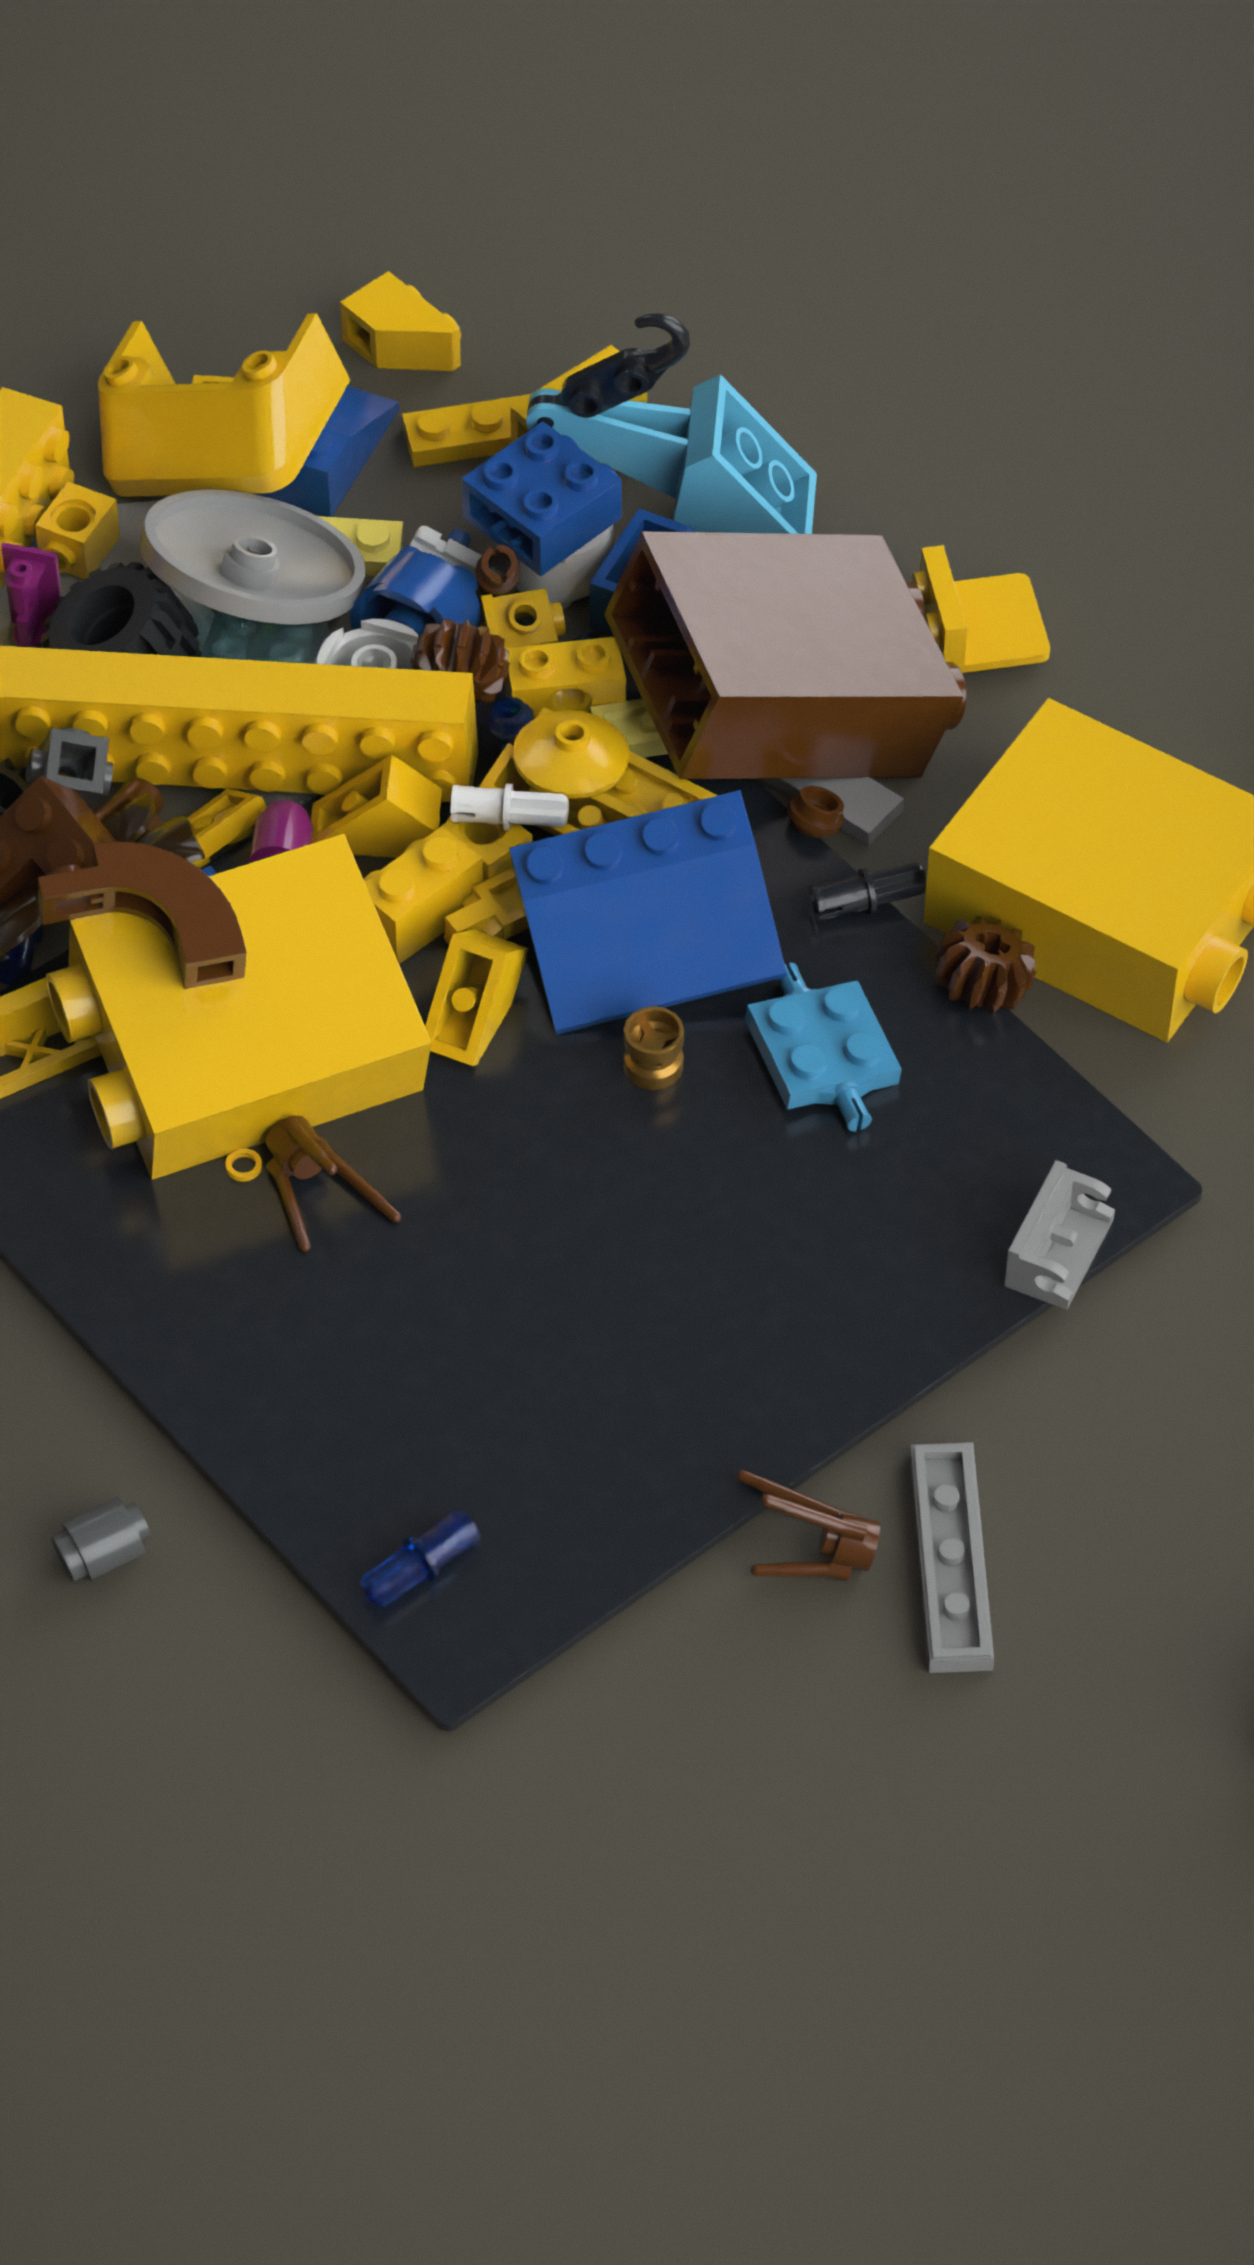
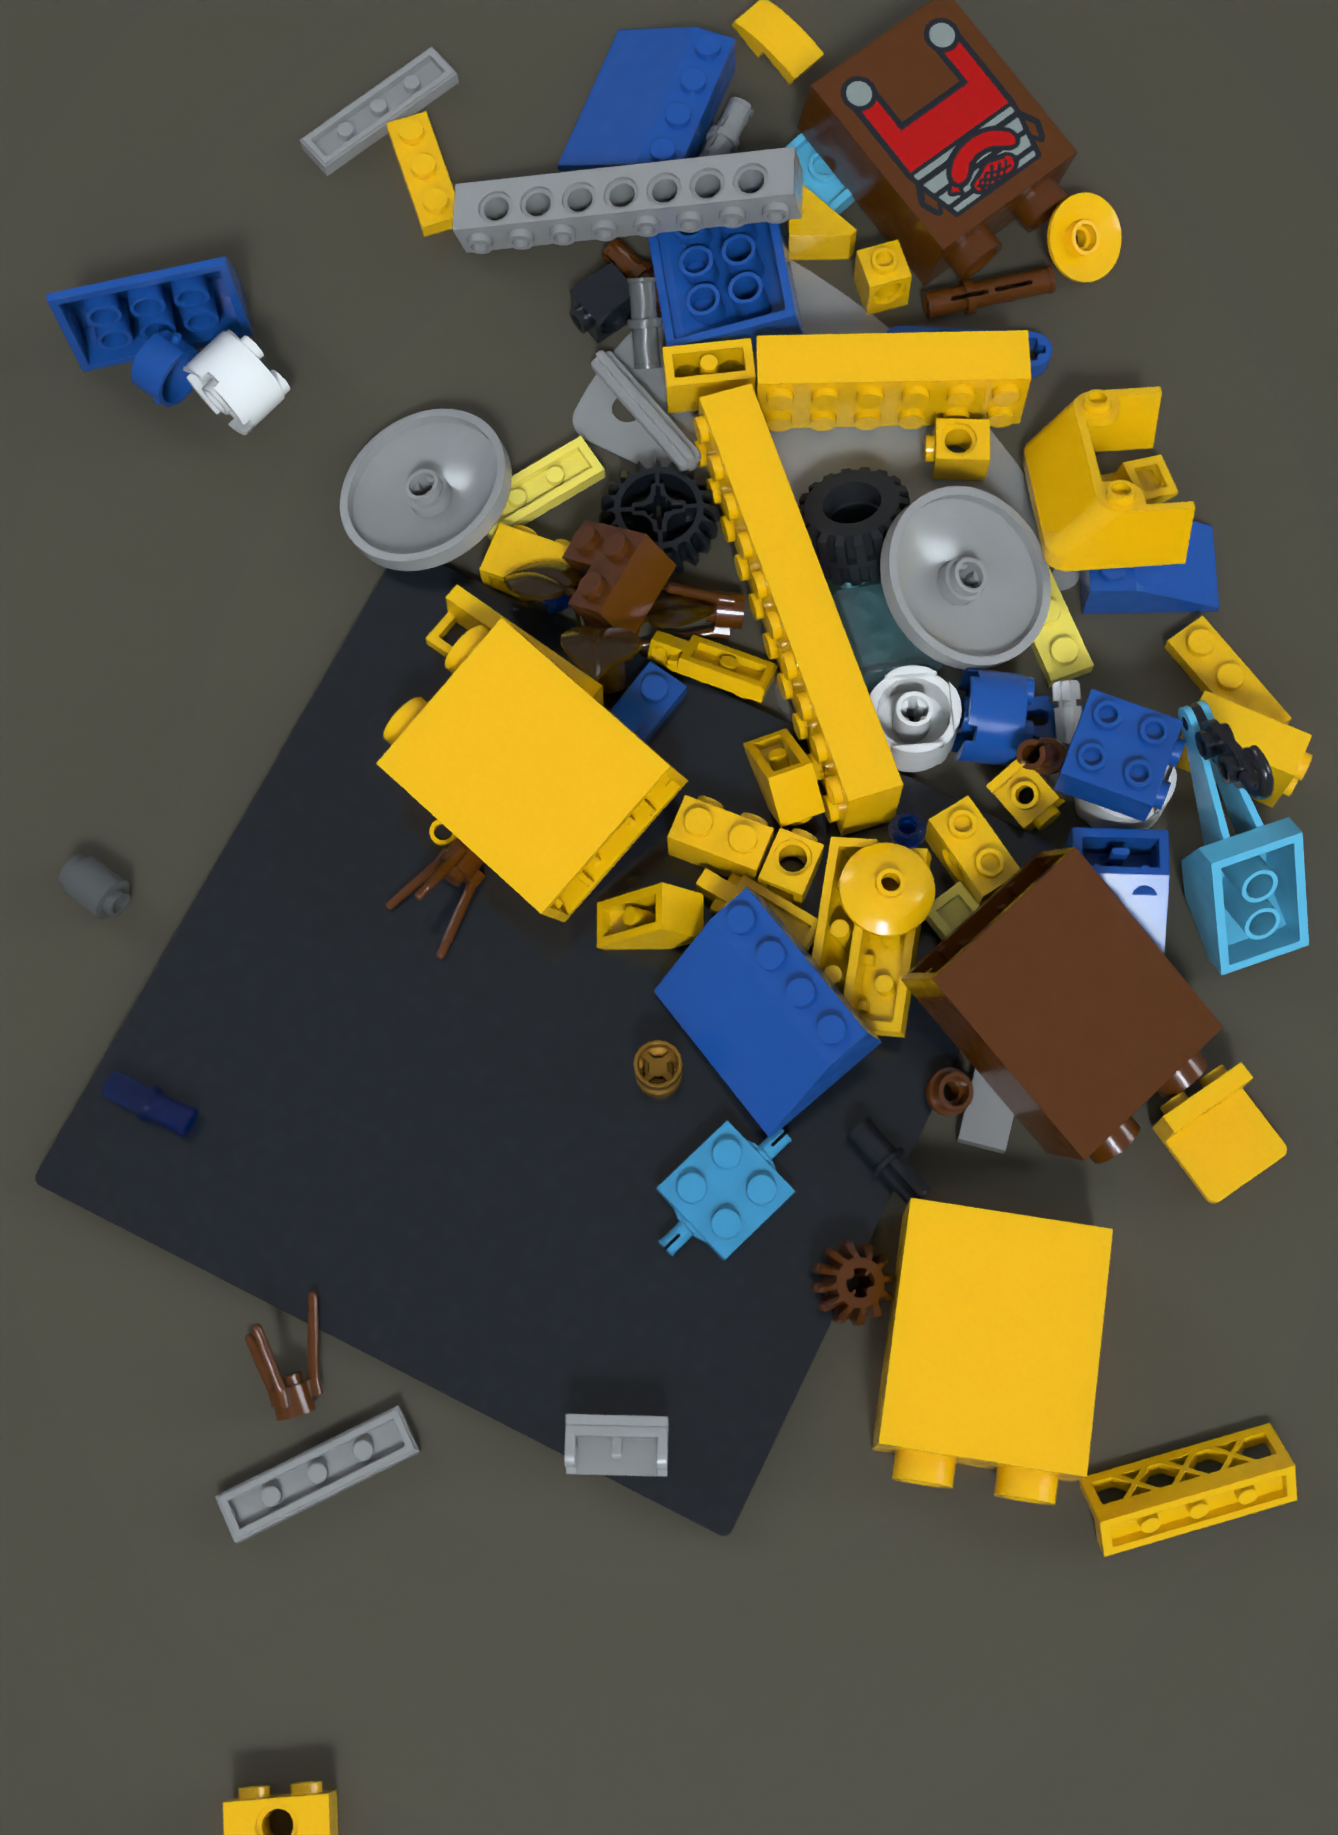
camera: 70 degrees right, 20 degrees up
(32, 590) = (866, 443): magenta hinge -> none
(78, 756) = (686, 551): dark grey brick -> none
(160, 890) = (541, 676): reddish brown arch -> none
(280, 829) = (726, 724): magenta brick -> none
(399, 328) = (1285, 570): yellow slope -> none
(466, 650) = (931, 770): reddish brown gear -> none
(507, 807) = (809, 867): white axle -> none

